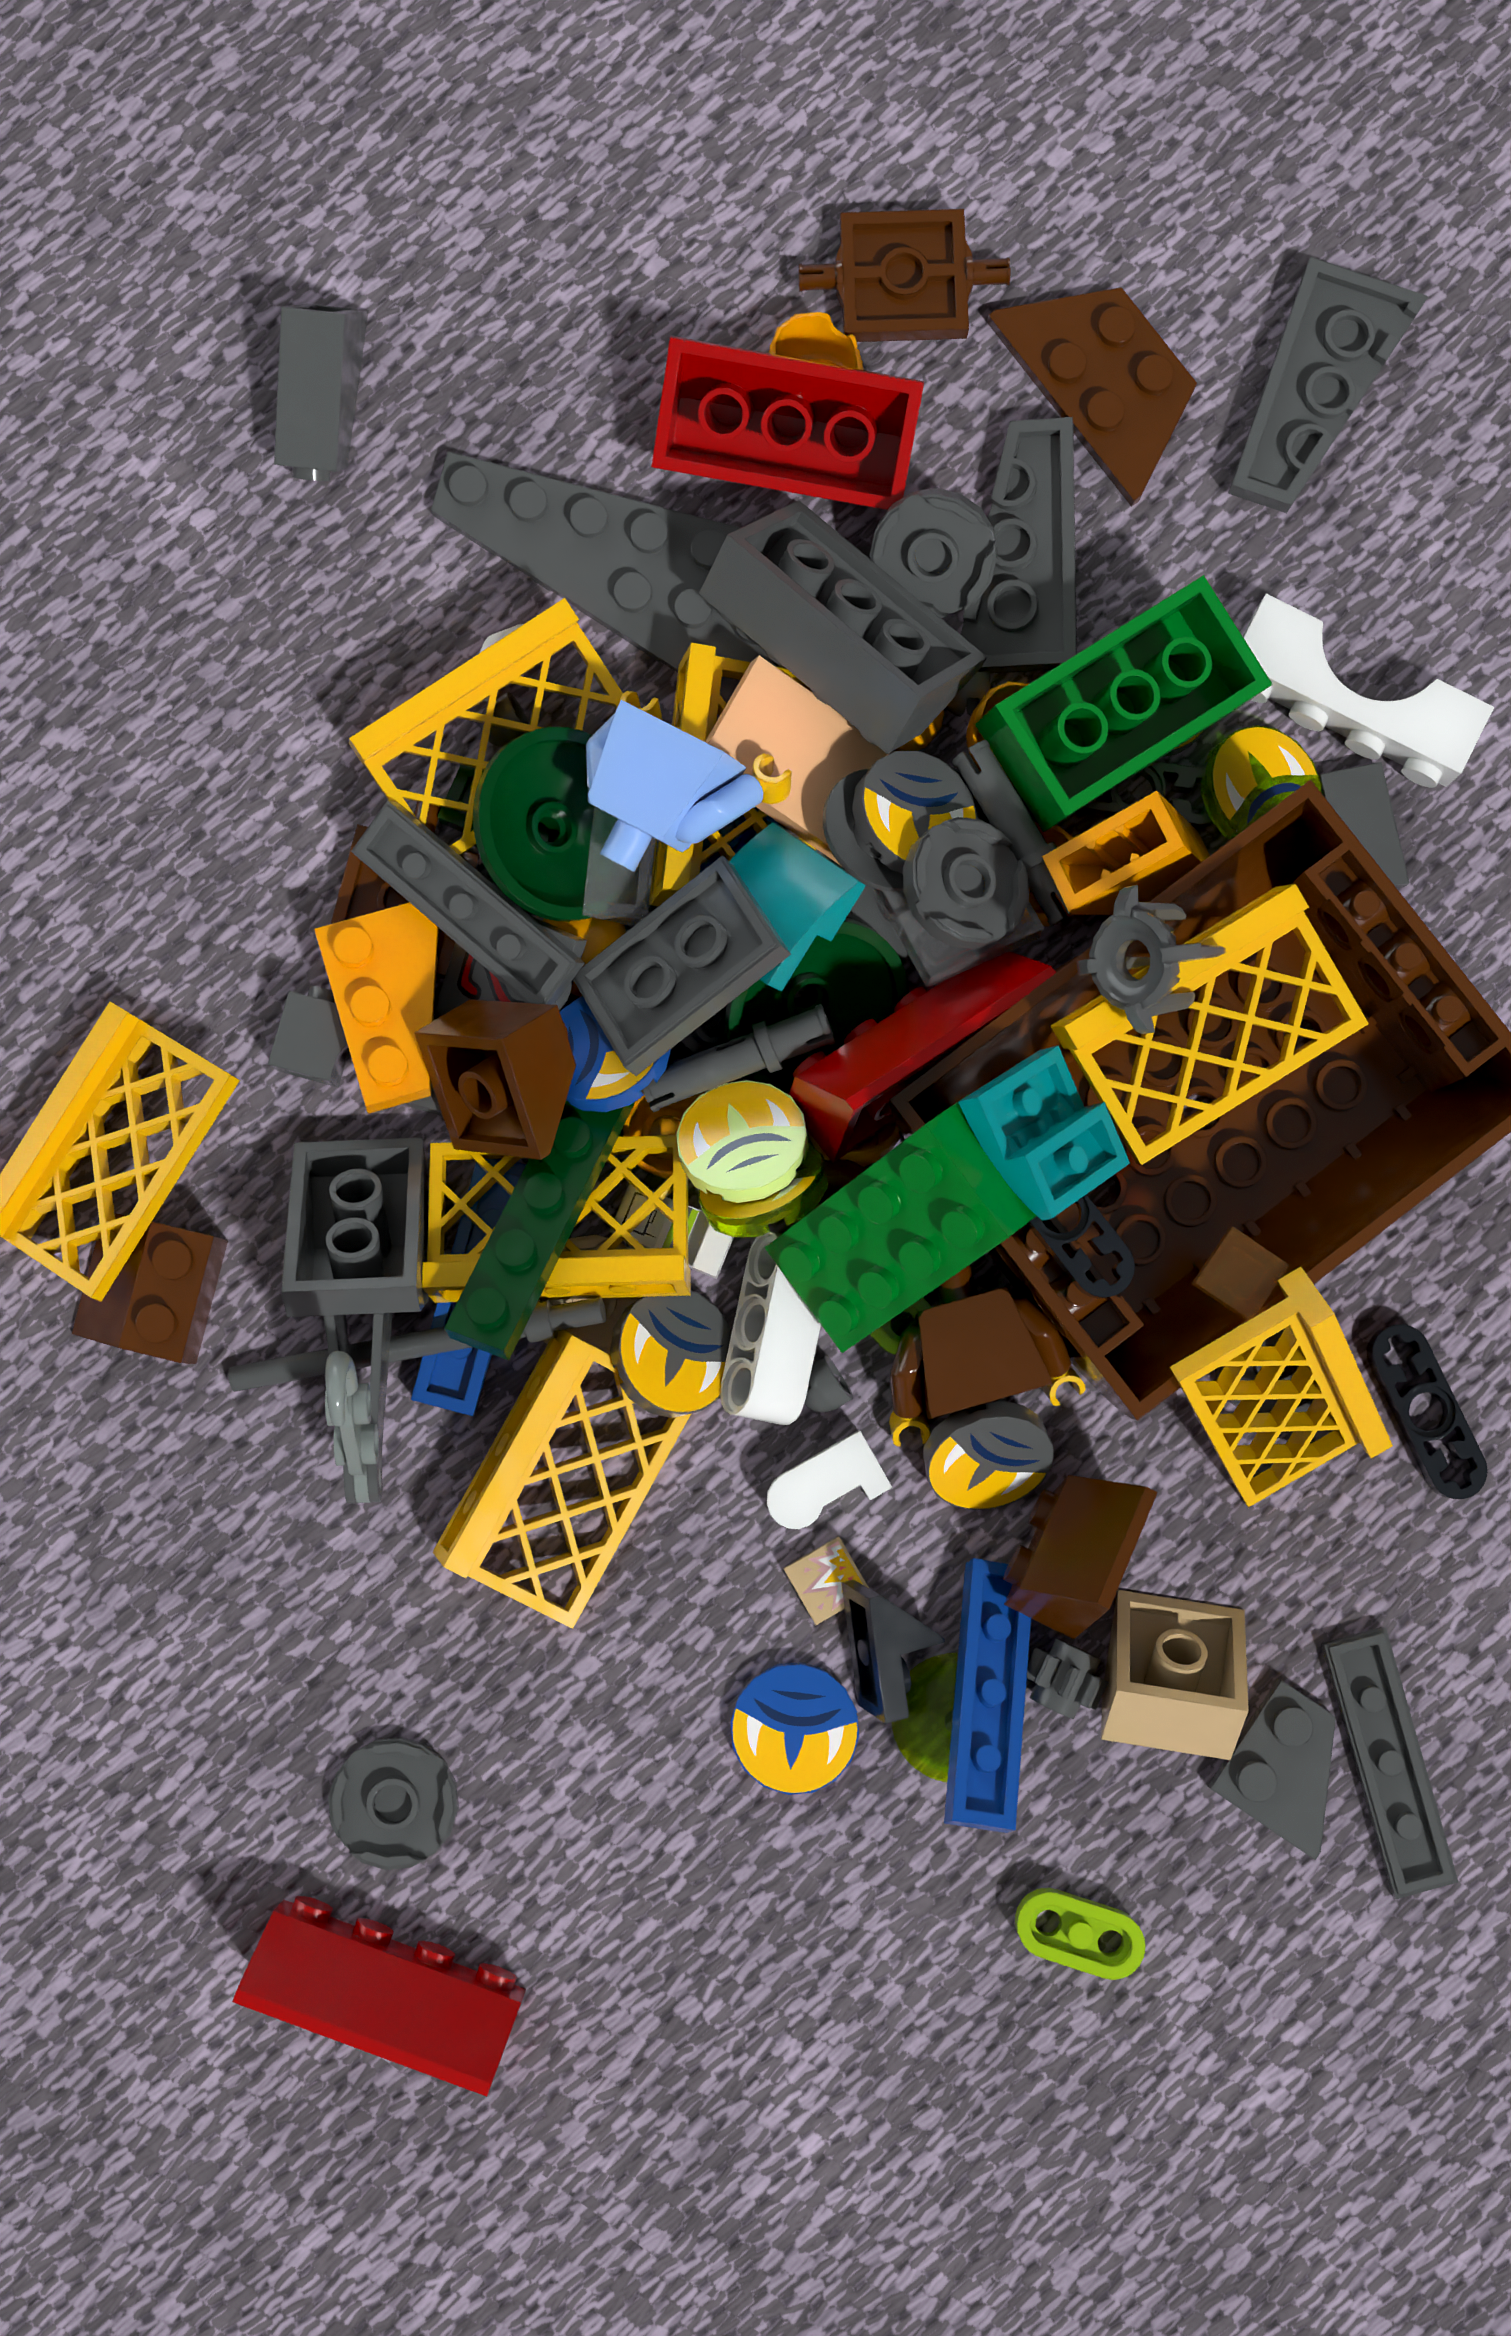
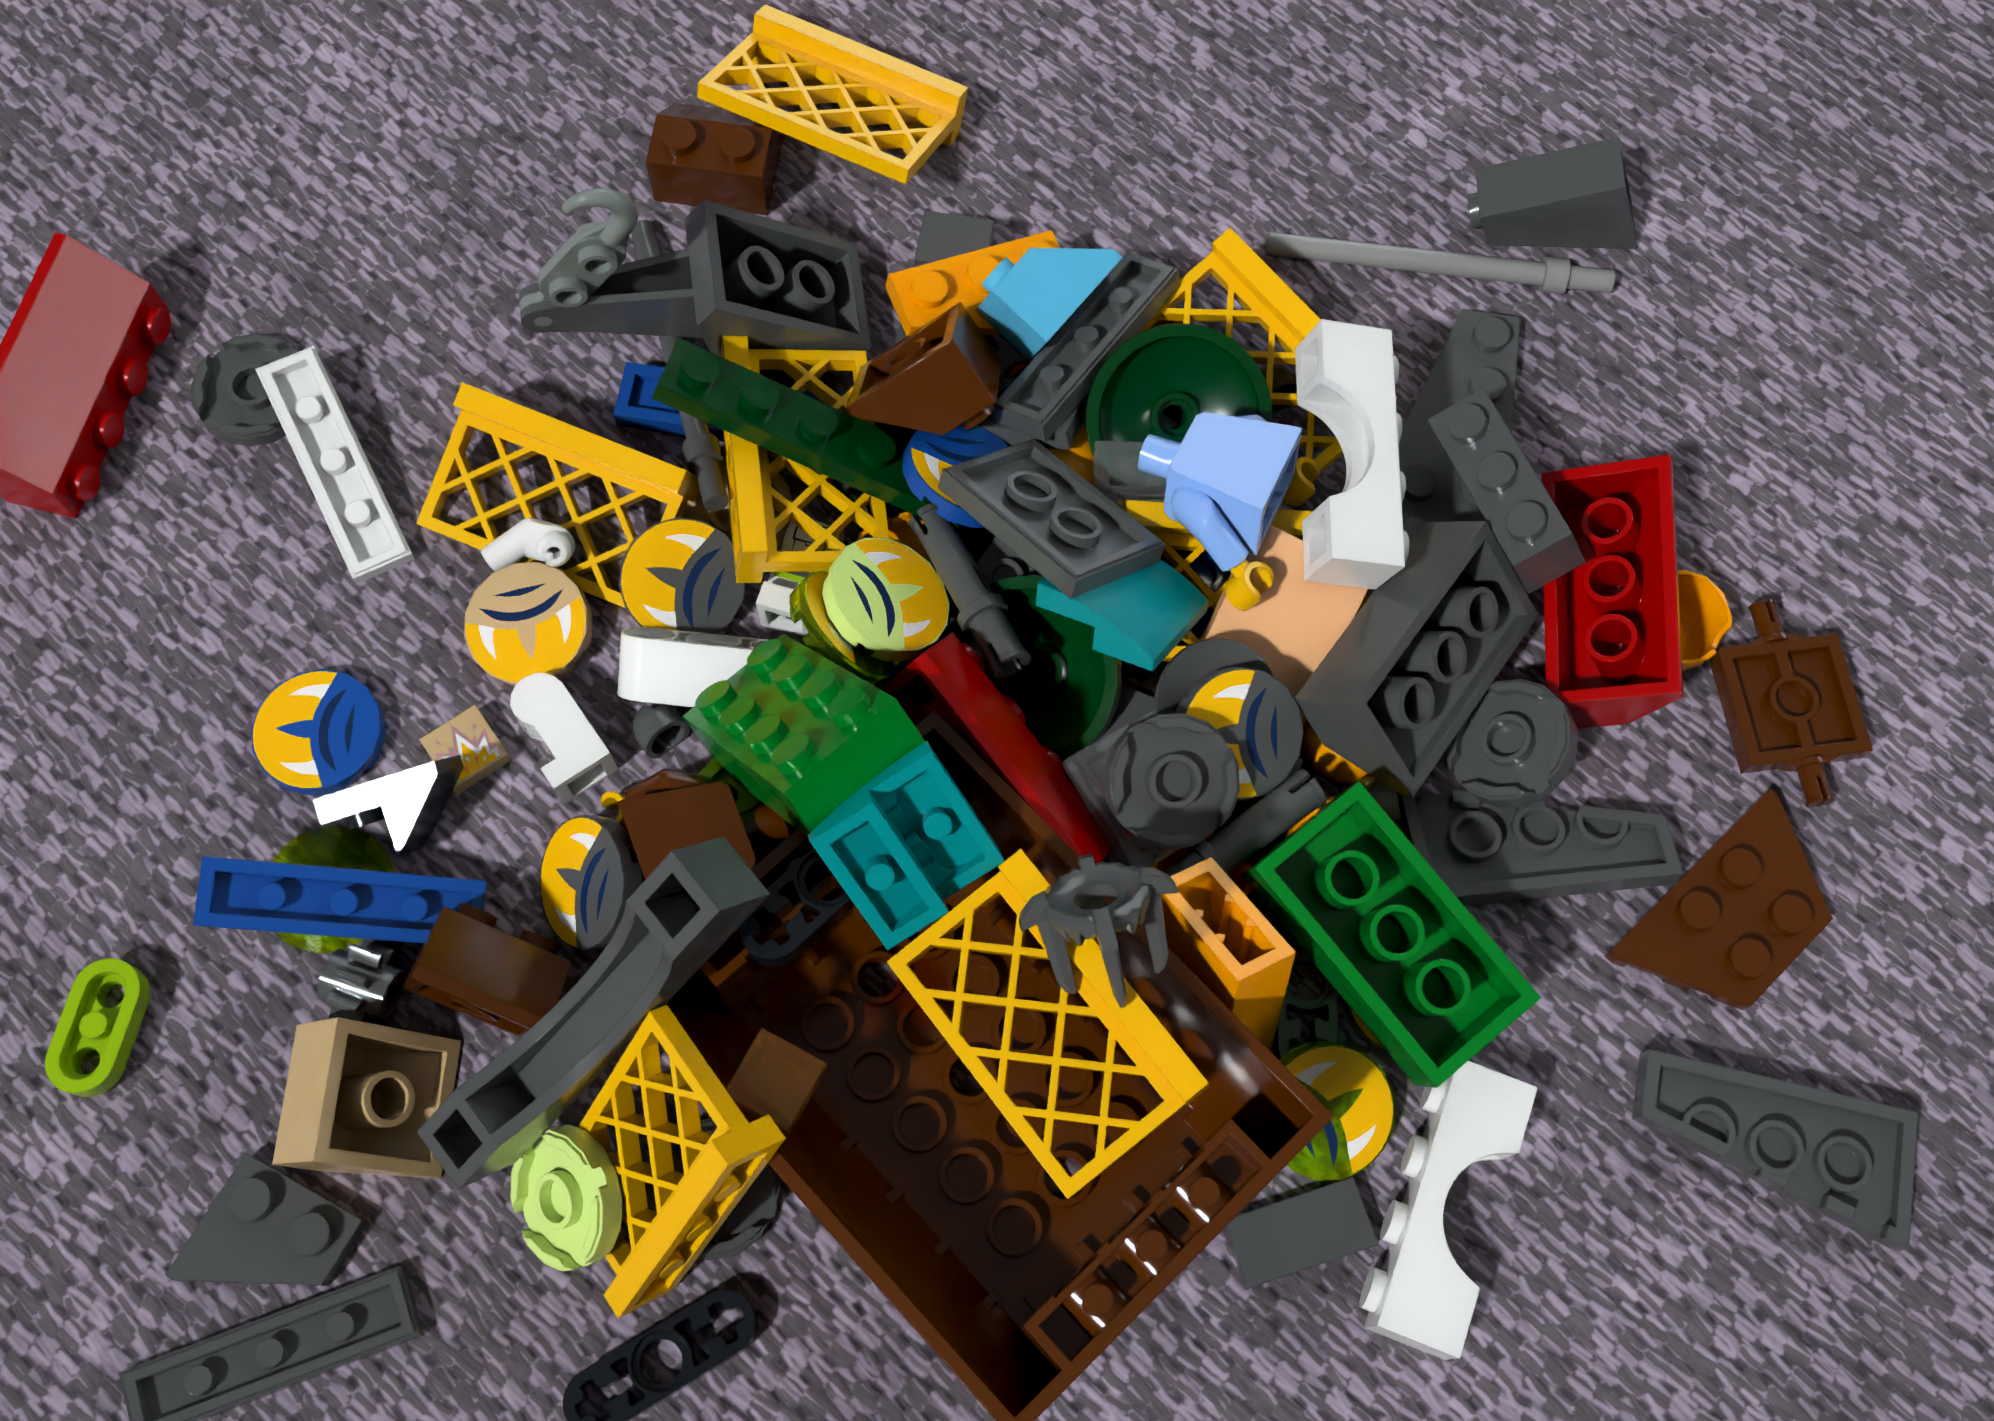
camera: 80 degrees right, 15 degrees down
(396, 409) = (1551, 274): none -> light grey bar
(412, 943) = (1041, 292): none -> medium azure slope
(498, 1713) = (335, 465): none -> white tile
(567, 640) = (1349, 383): none -> white arch
(614, 1501) = (530, 539): none -> white arm
(678, 509) = (1507, 490): none -> dark grey arch
(701, 1513) = (527, 623): none -> tile
(1139, 1379) = (661, 942): none -> dark grey arch
(1285, 1487) = (567, 1198): none -> yellowish green tile

